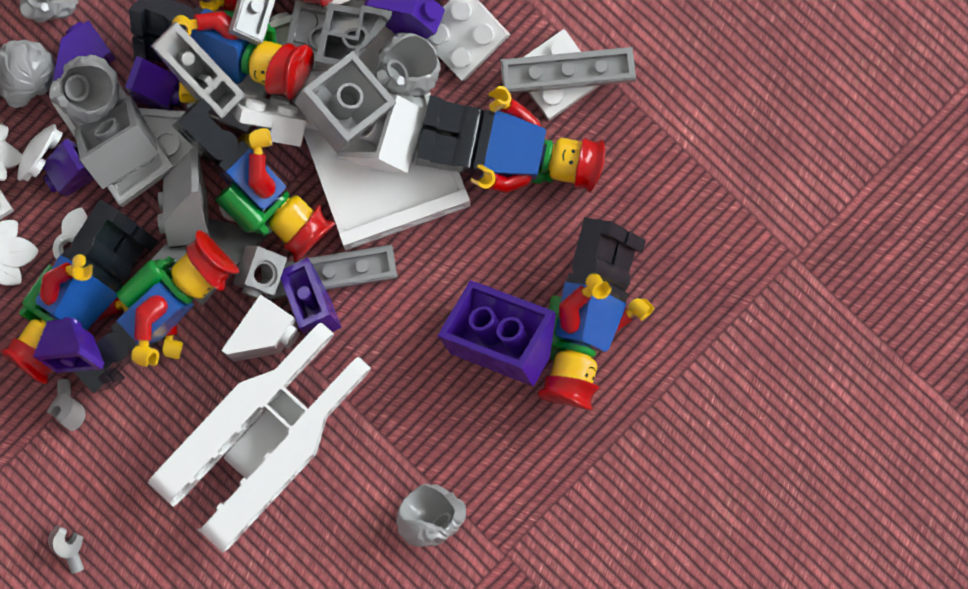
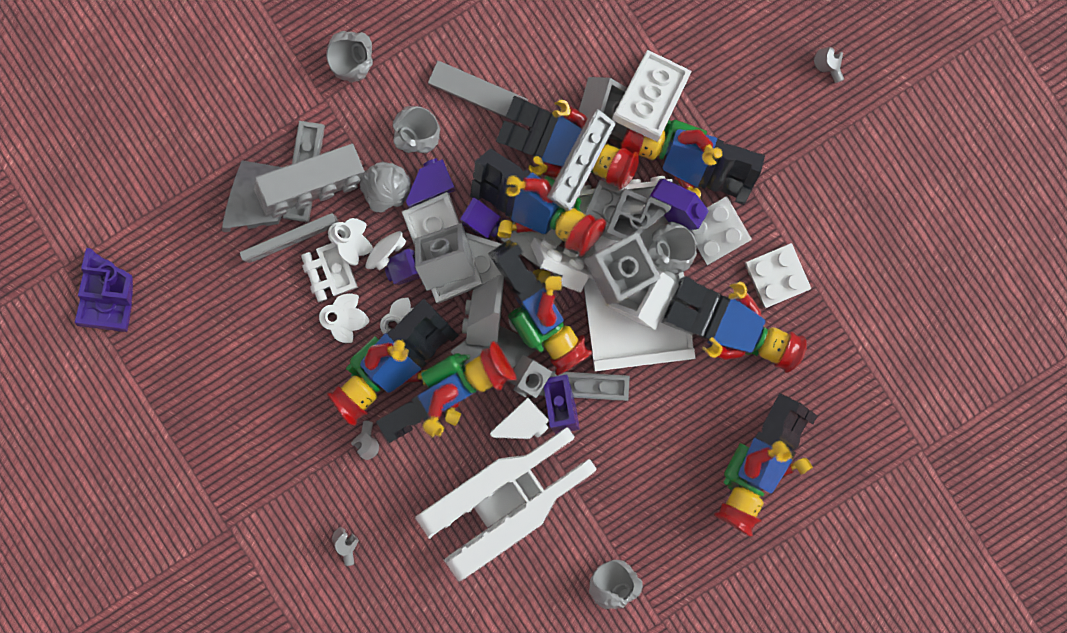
camera: 10 degrees right, 5 degrees up
(68, 347) = (377, 406): dark purple slope -> none
(86, 89) = (430, 212): light grey hair -> none
(197, 70) = (518, 221): light grey slope -> none
(500, 332) = (697, 463): dark purple slope -> none
(568, 70) = (789, 276): light grey tile -> none

